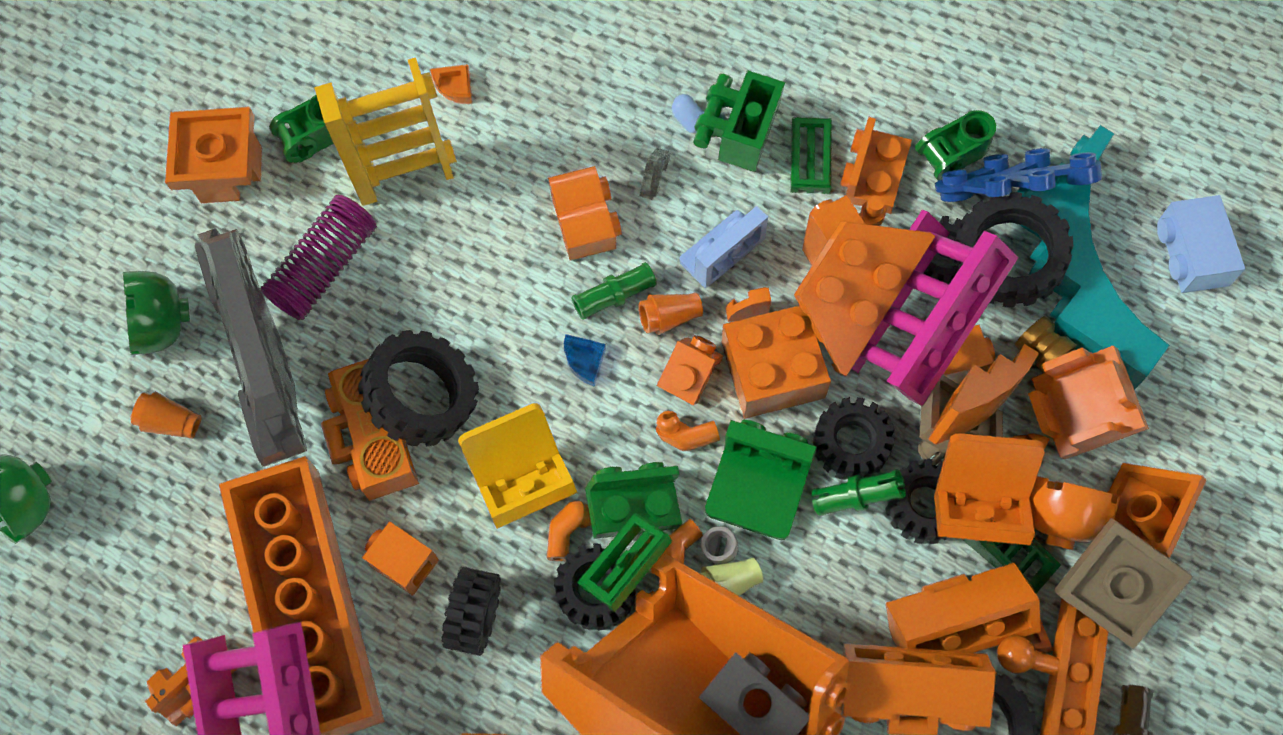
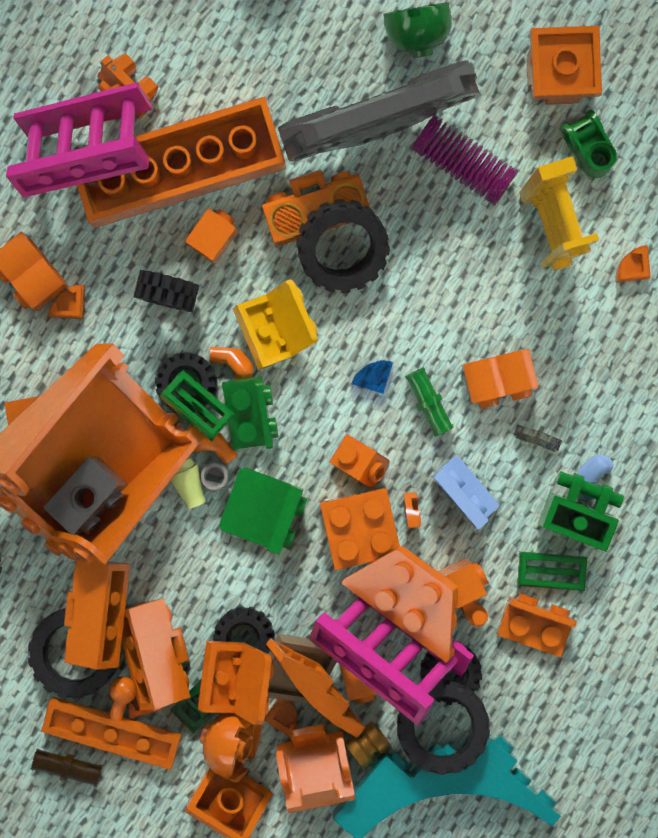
camera: 85 degrees right, 20 degrees up
(164, 416) = (332, 45): orange cone -> none
(667, 311) = (409, 445): orange cone -> none
(682, 436) = (305, 452): orange arm -> none
(856, 414) = (289, 605): black tyre -> none
(858, 493) = (248, 585): green pin -> none
(951, 146) = (550, 689): green piece -> none
(997, 178) = (511, 698): blue plant -> none
(1122, 583) = (168, 774): dark tan tile -> none

